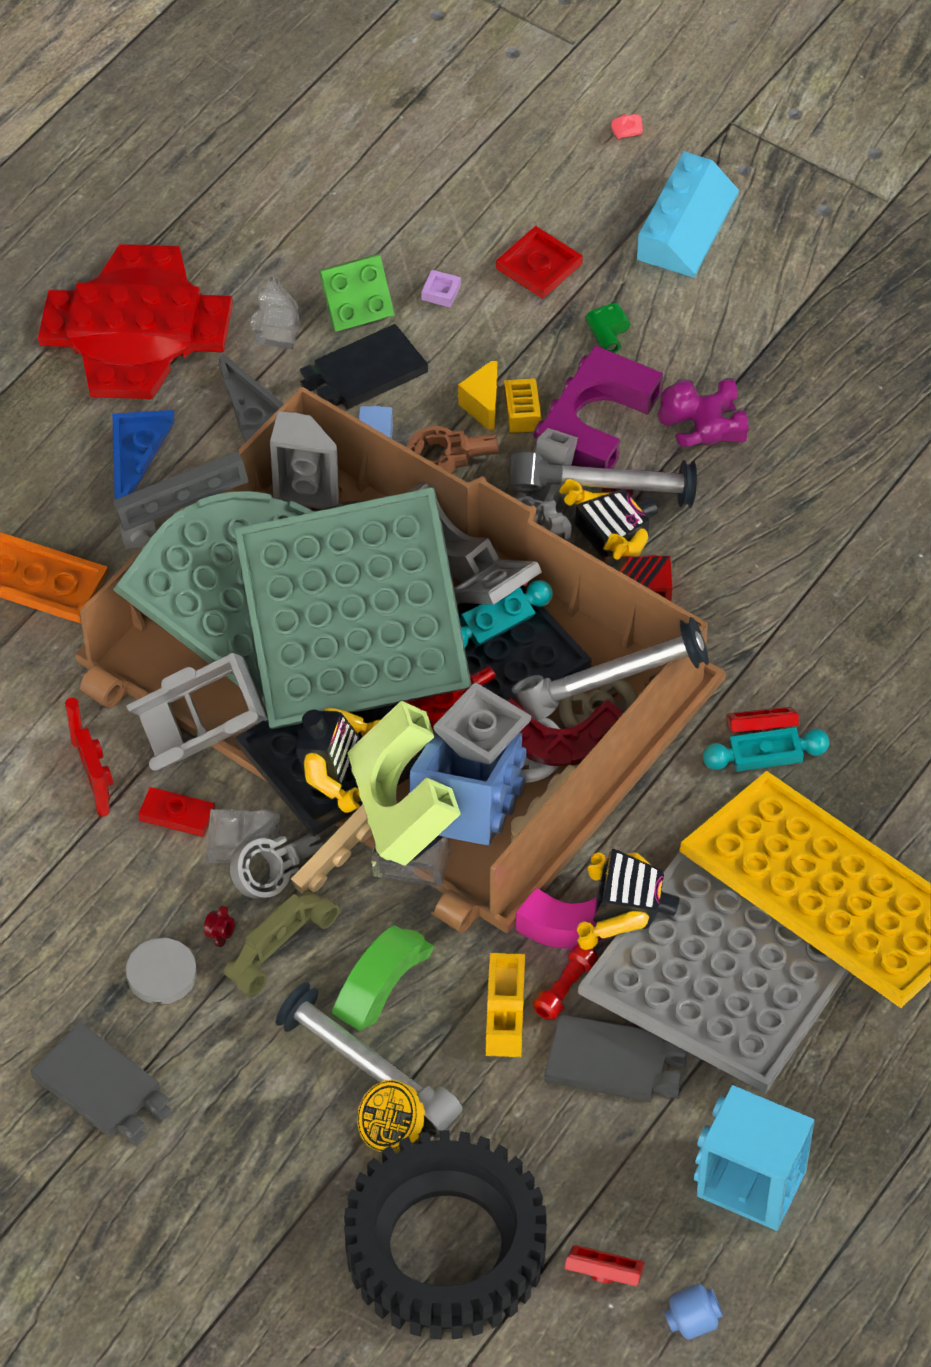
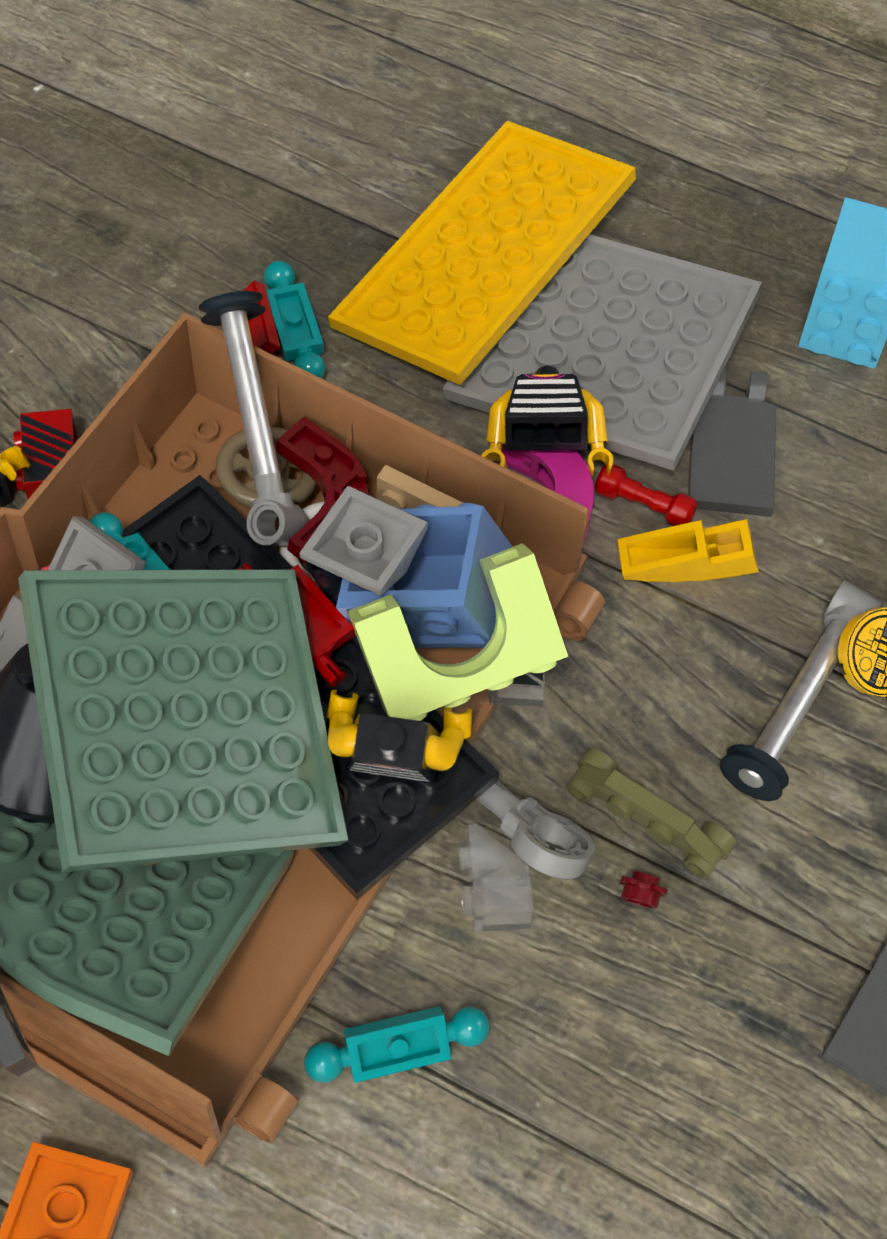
camera: 100 degrees left, 5 degrees up
(90, 753) = (421, 1093): red plate -> none
(133, 766) = (396, 1044): none -> teal plate
(161, 971) = (718, 960): light grey tile -> none
(162, 725) = (383, 982): light grey piece -> none
(176, 811) = (460, 970): red plate -> none
(333, 852) = (520, 755): tan plate -> none
(377, 973) = (692, 671): bright green arch -> none

